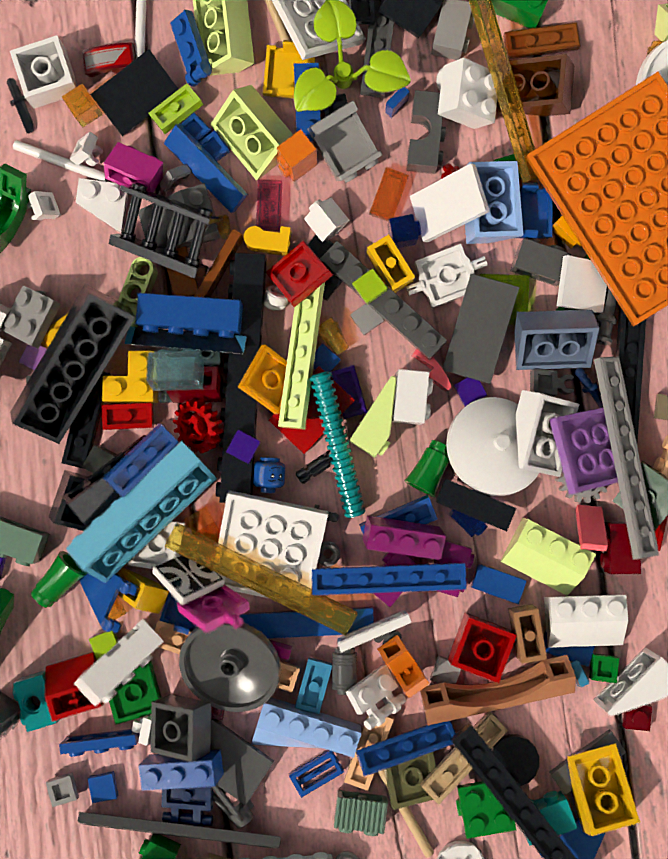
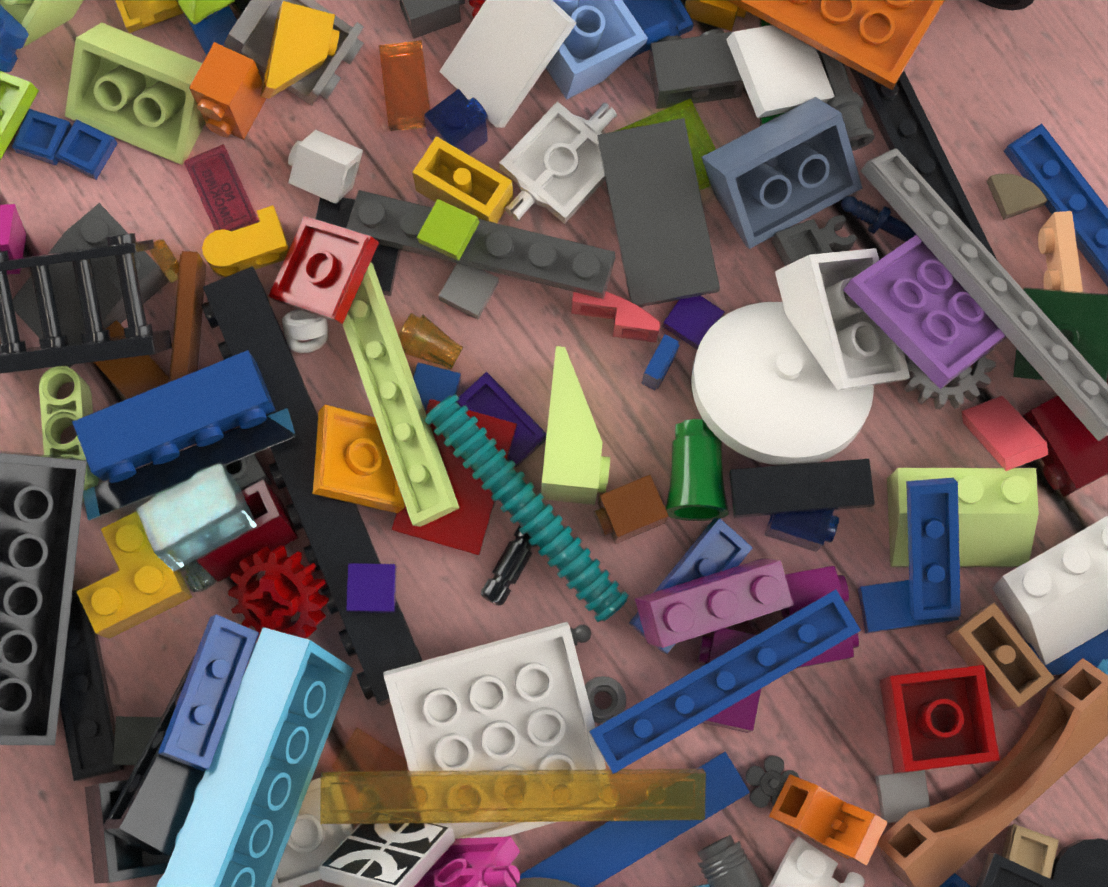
camera: 30 degrees left, 10 degrees down
(127, 416) = (151, 643): red plate -> none
(173, 175) = (42, 220): light grey tile -> none
(205, 168) = (89, 183): blue tile -> none
(269, 474) = (437, 616): blue head -> none
(343, 149) = (298, 46): none -> yellow slope
(373, 630) = (746, 785): white tile -> none
(388, 470) = (630, 510): none -> dark orange brick
(411, 397) = (606, 370): white brick -> none
(442, 404) = (660, 362): none -> blue tile
(523, 567) = (933, 548): none -> blue plate

